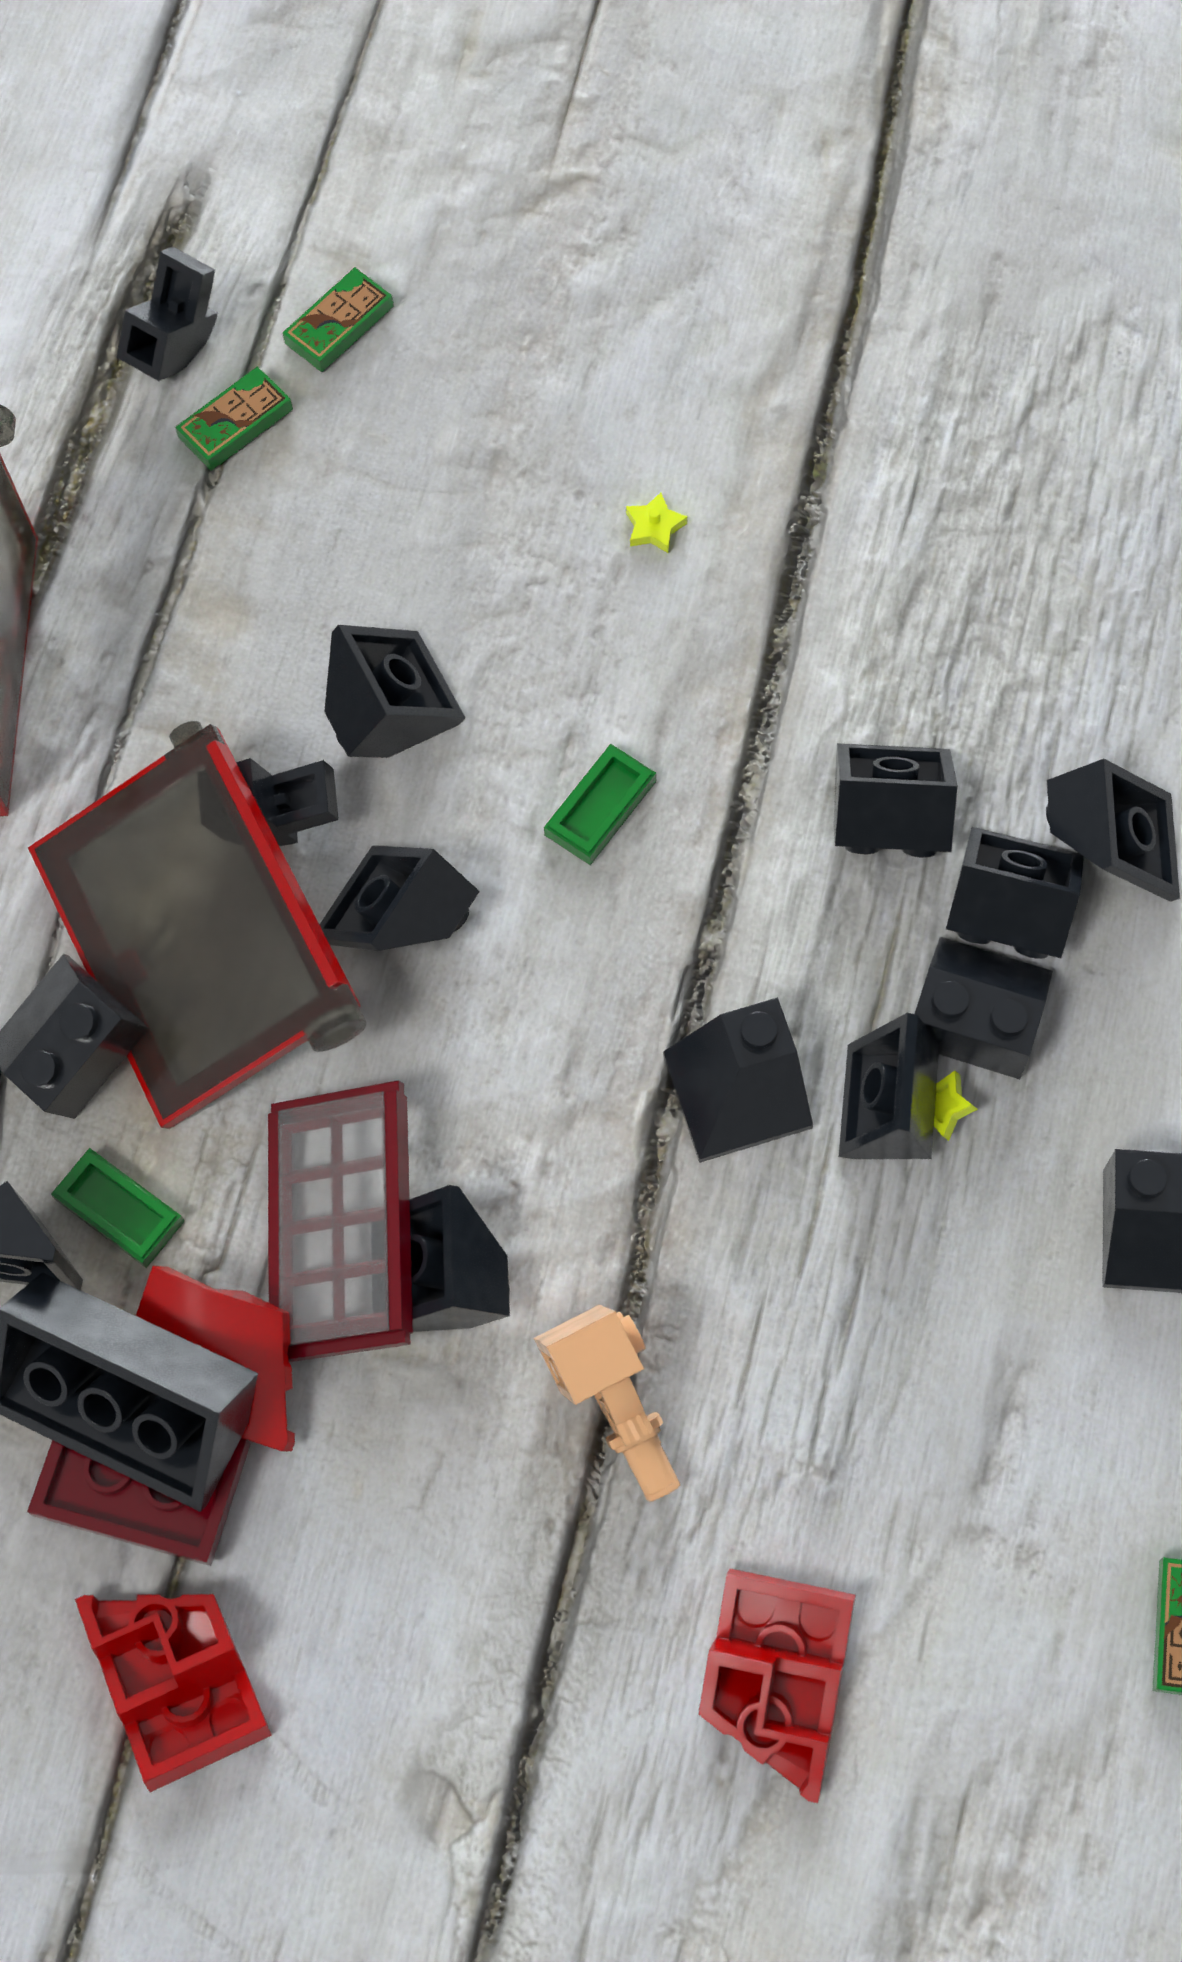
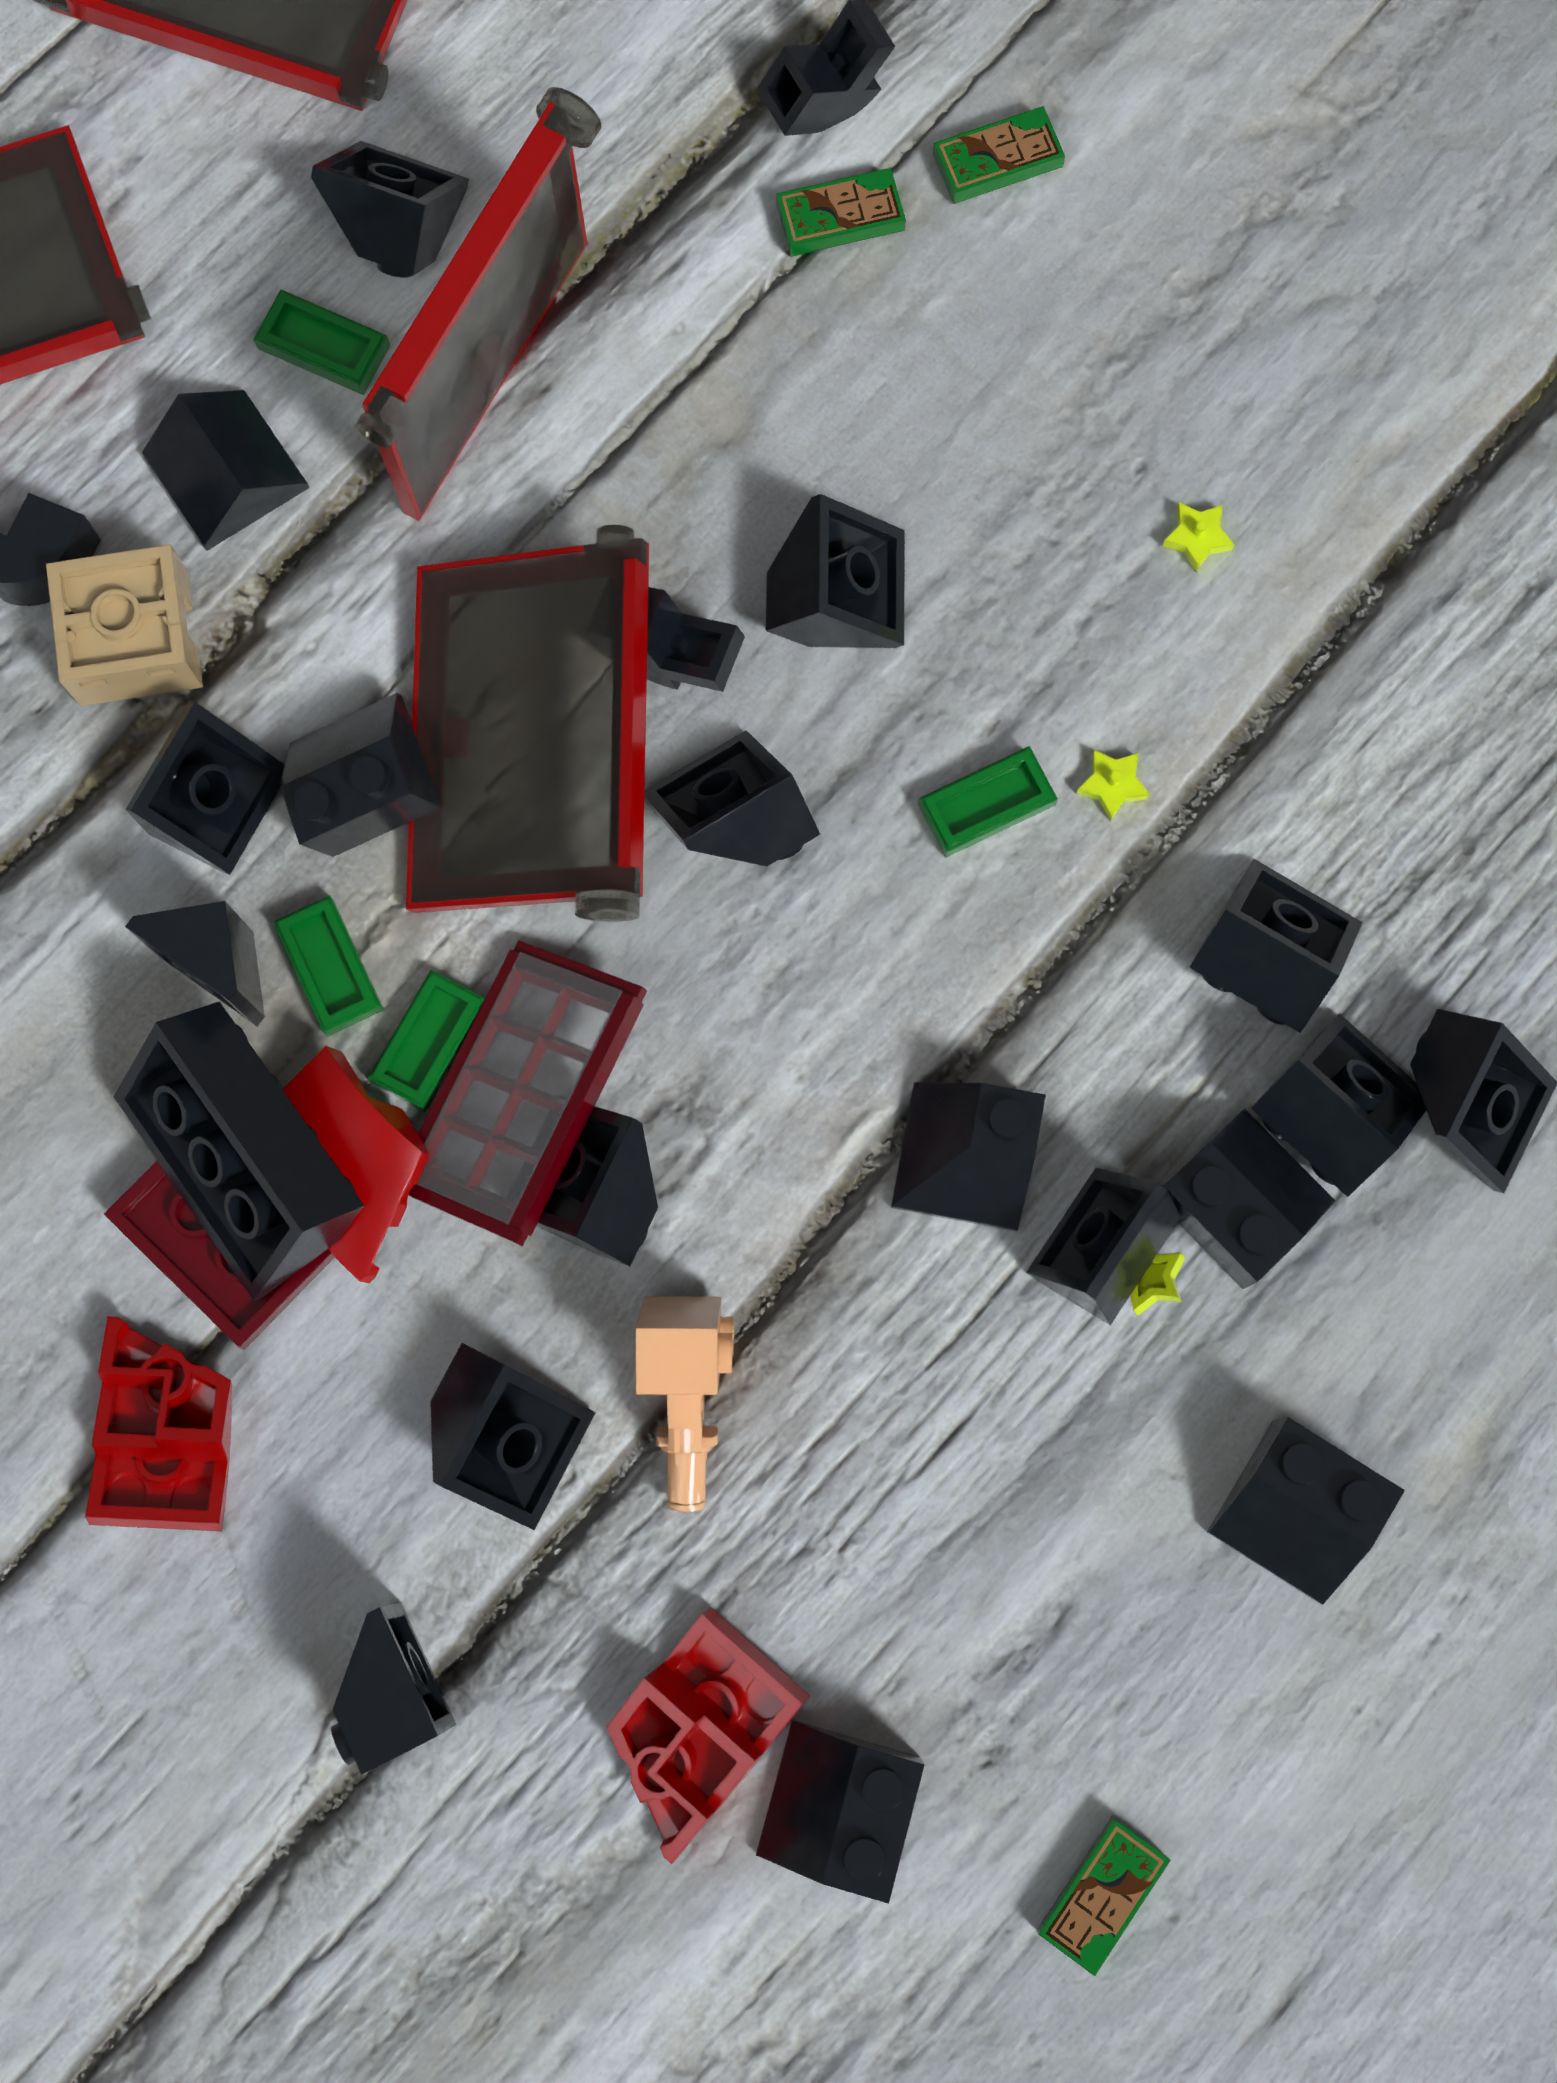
camera: 25 degrees right, 10 degrees up
(235, 1226) = (426, 1040): none -> green tile
(476, 1512) = (502, 1436): none -> black slope
(497, 1786) = (387, 1694): none -> black slope
(693, 740) = (1113, 782): none -> neon yellow piece
(935, 1674) = (840, 1810): none -> black slope

